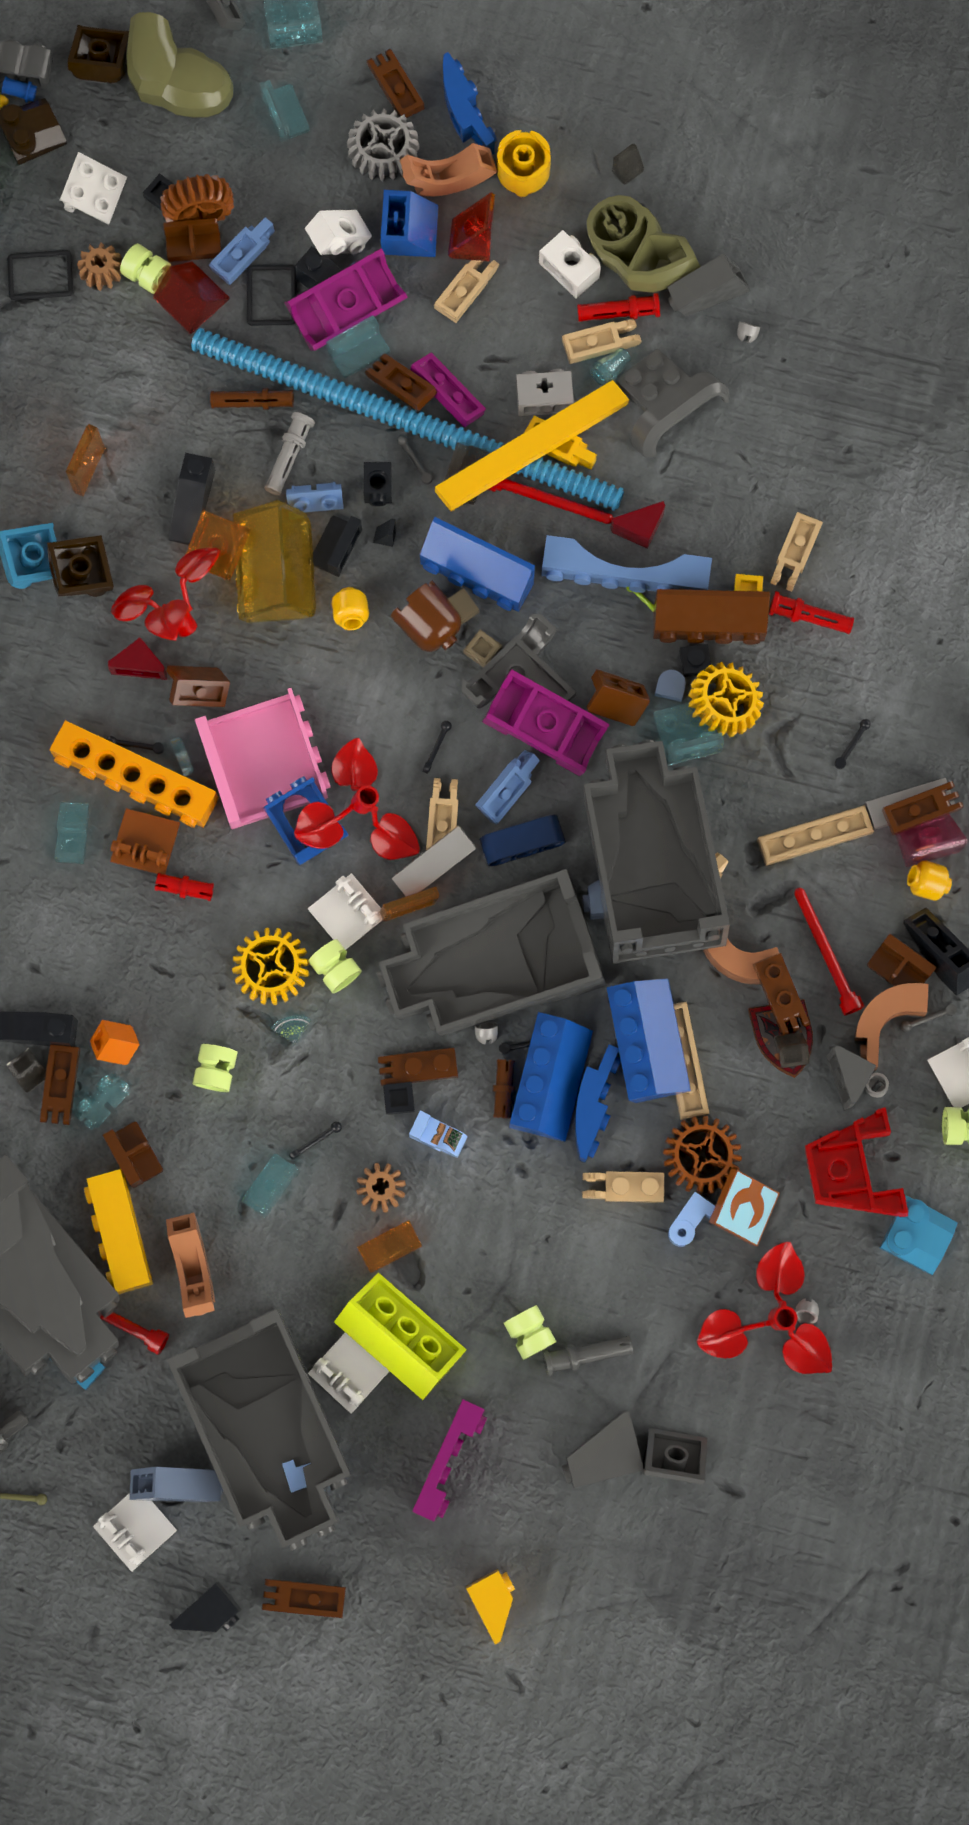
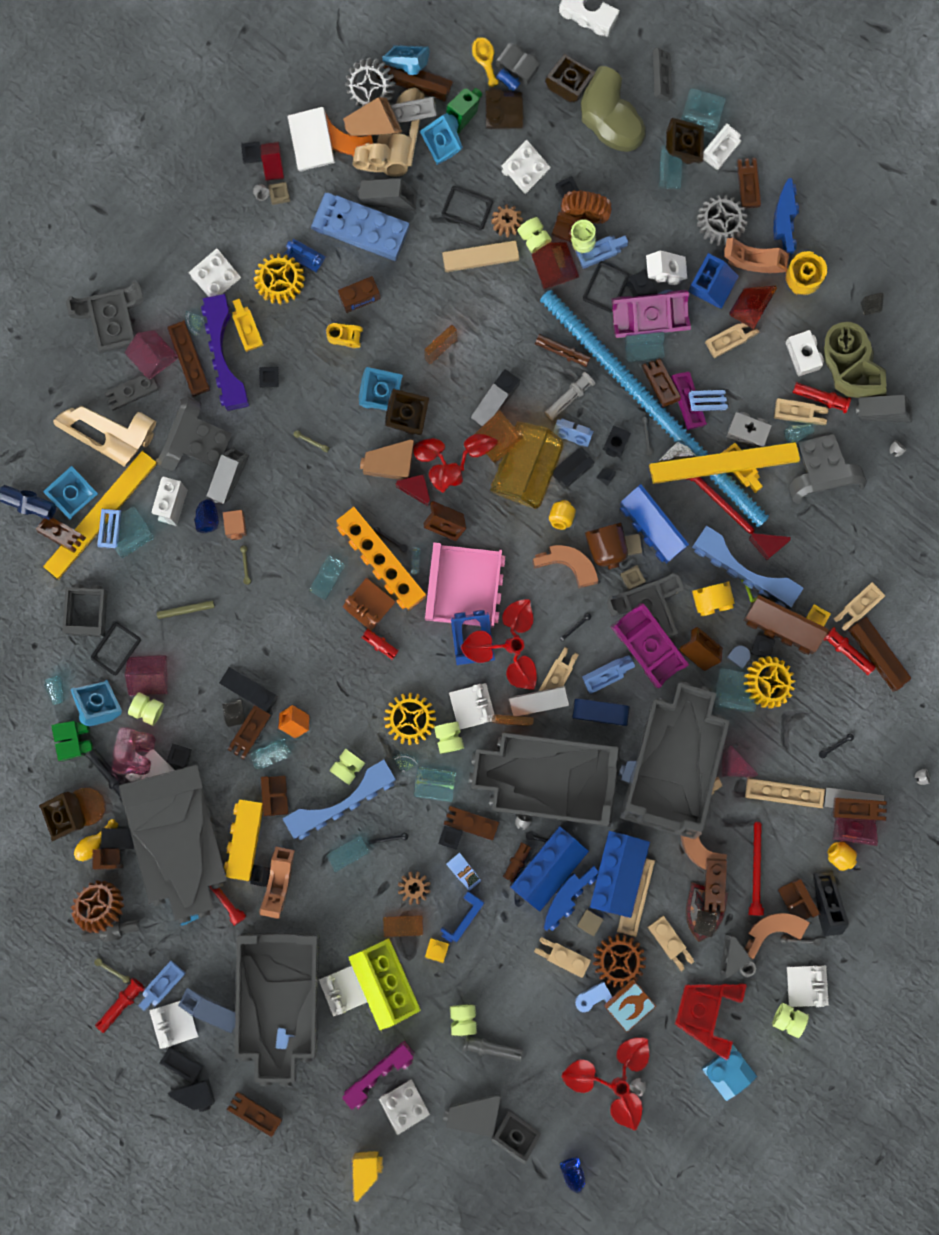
camera: 25 degrees right, 5 degrees up
(51, 1524) = (125, 998): none -> red pin
(86, 327) = (480, 256): none -> tan tile
(86, 642) = (389, 461): none -> medium nougat slope
(94, 1483) = (162, 985): none -> medium blue hinge
(162, 1269) = (260, 875): none -> black plate
(171, 1580) = (181, 1064): none -> black tile
(189, 1167) = (375, 779): none -> medium blue arch
(210, 239) = (583, 236): none -> yellowish green wheel
(288, 64) = (685, 141): none -> dark brown slope
(339, 54) = (722, 147): none -> white hinge
(344, 1038) = (434, 784): none -> clear light blue panel
(389, 659) = (571, 557): none -> nougat arch
(450, 1257) = (437, 950): none -> yellow plate
(469, 374) = (721, 399): none -> light blue tile
(473, 1165) = (477, 904): none -> blue panel
(504, 1489) = (404, 1106): none -> white hinge
(600, 623) = (713, 597): none -> yellow brick
(639, 1124) = (590, 922): none -> dark tan tile
(733, 825) = (735, 766): none -> clear pink slope
(757, 1099) = (669, 941): none -> tan hinge
(776, 1470) = (573, 1174): none -> clear blue rock
(851, 601) = (879, 654): none -> reddish brown panel

